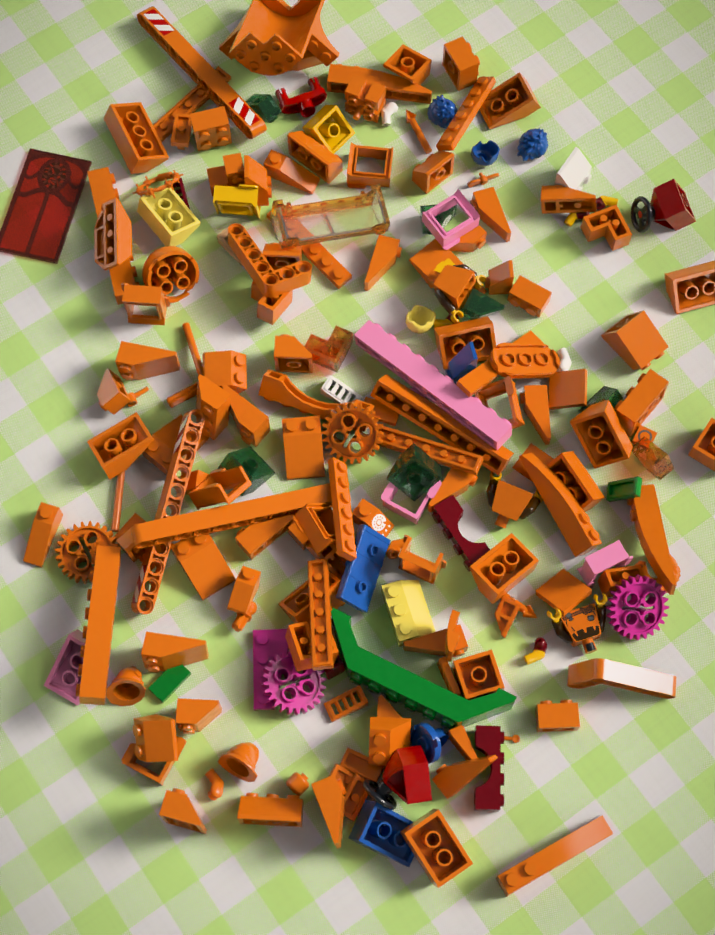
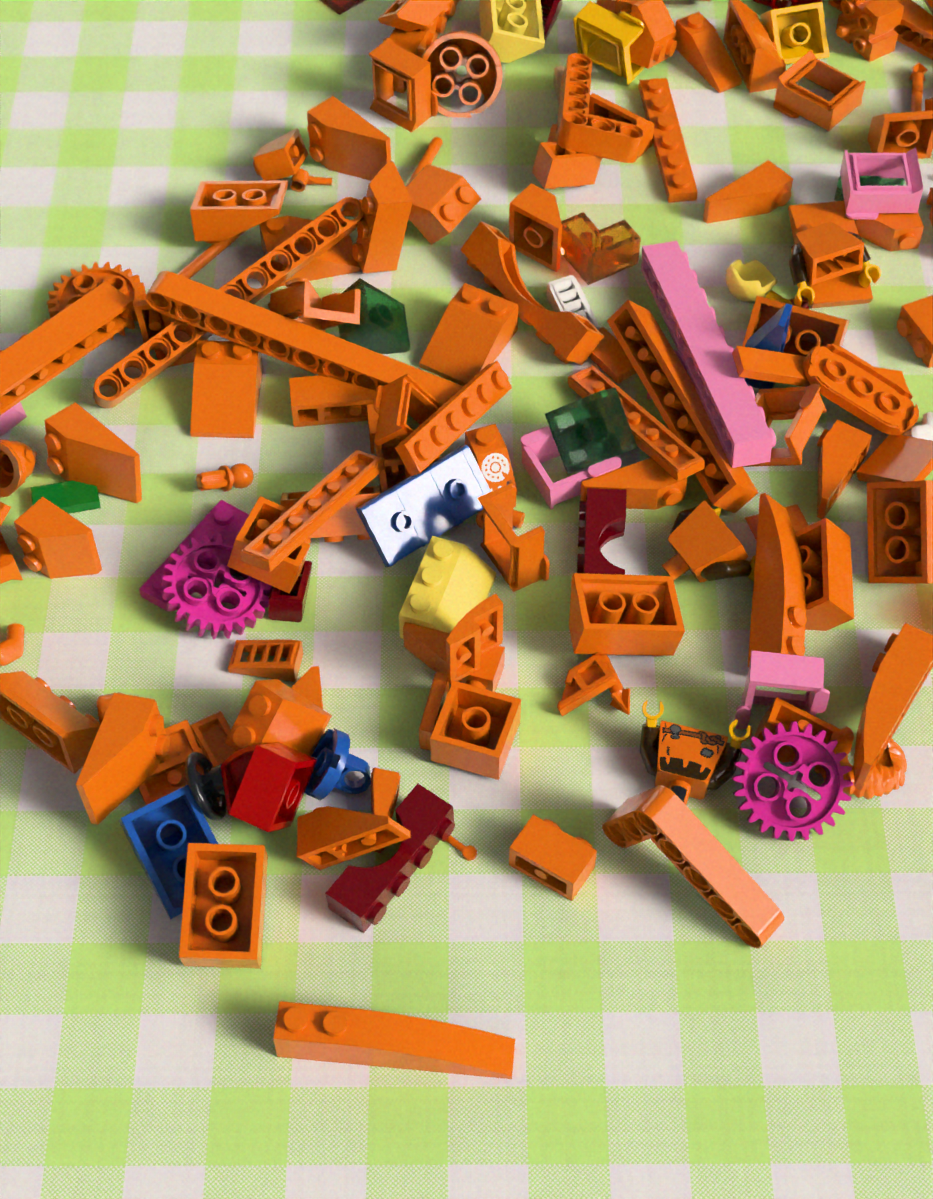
camera: 35 degrees right, 15 degrees down
(42, 534) = (73, 245): orange slope -> none
(241, 761) = (64, 634): orange piece -> none
(244, 590) = (249, 443): orange slope -> none
(249, 420) = (421, 263): orange slope -> none
(330, 219) = (711, 109): windscreen -> none
(367, 442) = (547, 347): orange gear -> none
(387, 111) = (895, 50): white arm -> none
(410, 689) = (370, 692): green slope -> none
(479, 305) = (848, 300): clear green slope -> none
(500, 279) = (901, 286): orange slope -> none
(538, 652) = (594, 761): arm -> none
(563, 591) = (694, 700): orange tile -> none
(624, 489) = (891, 622): green tile -> none

